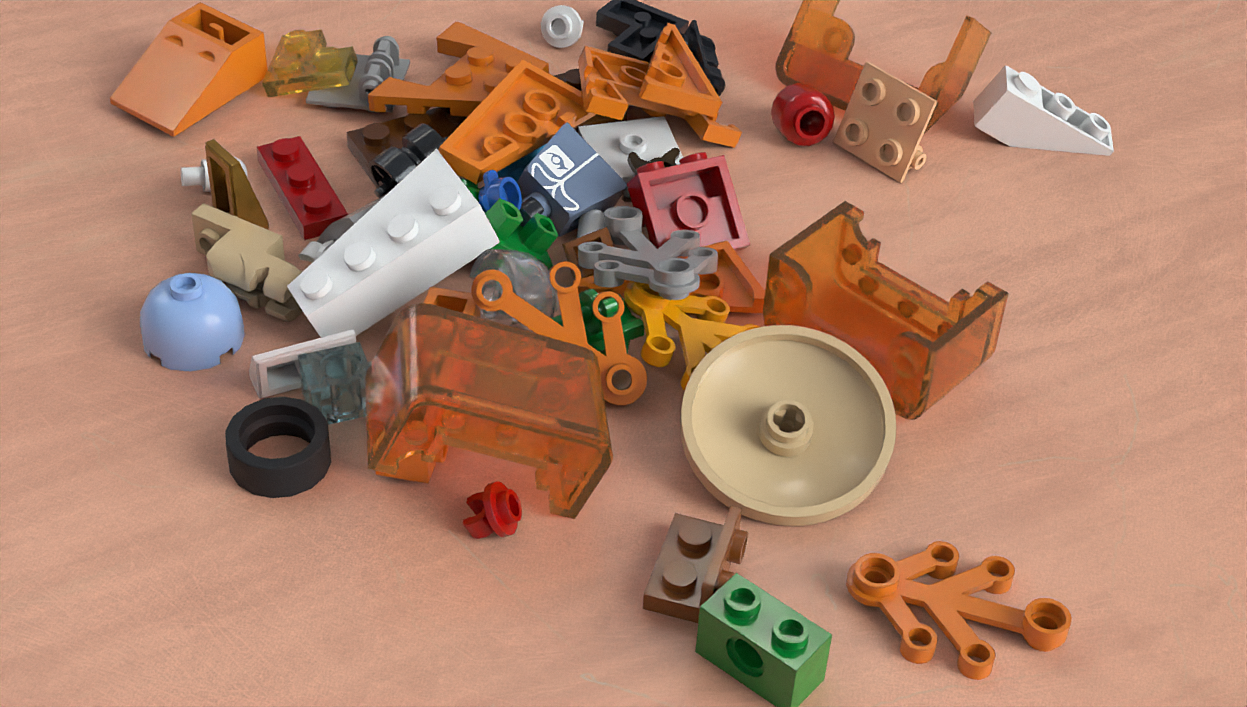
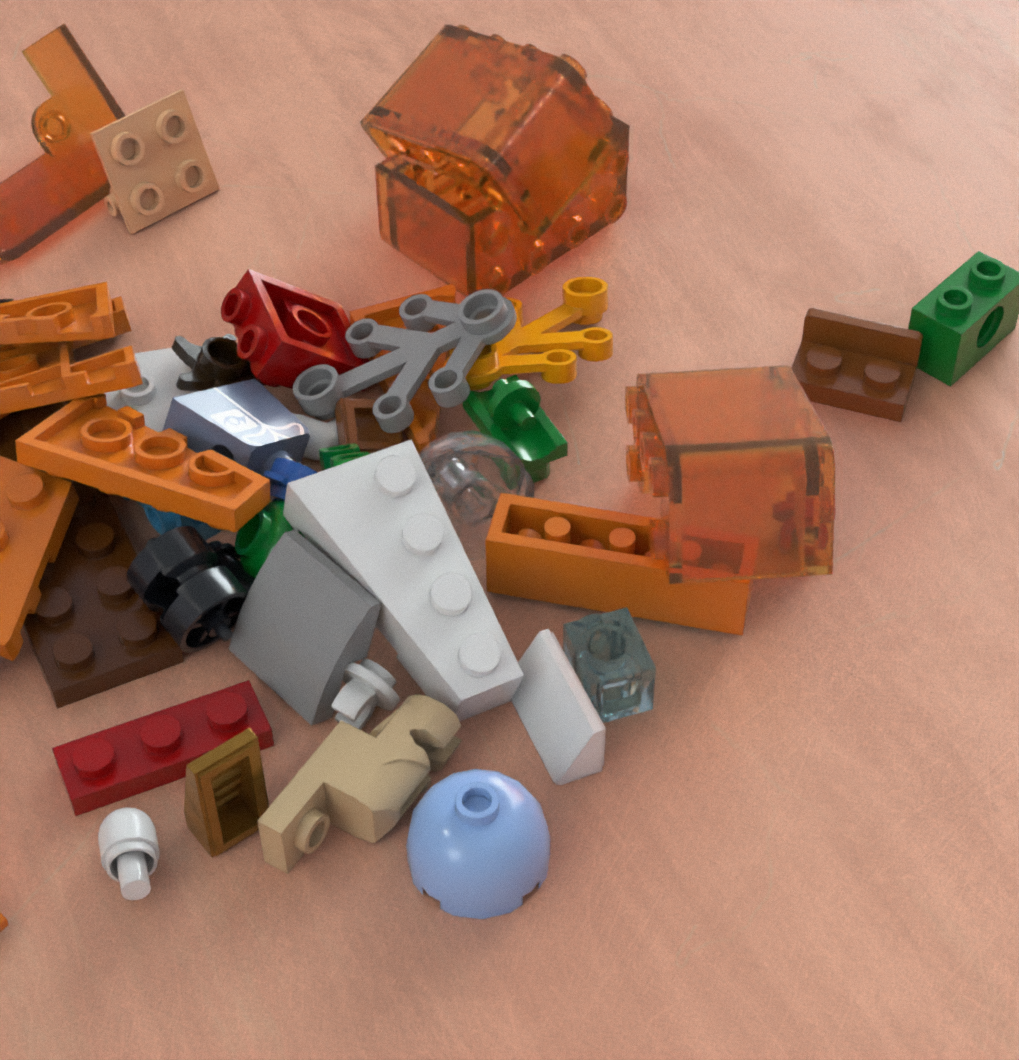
camera: 85 degrees left, 5 degrees up
(281, 475) = (723, 682): black tyre -> none
(573, 327) = (581, 415): orange plant -> none
(787, 425) = (672, 276): tan dish -> none
(802, 114) = (103, 237): red head -> none
(888, 265) = (498, 121): none -> clear orange windscreen
(888, 584) = (858, 246): orange plant -> none
(1032, 117) = (141, 62): white slope -> none

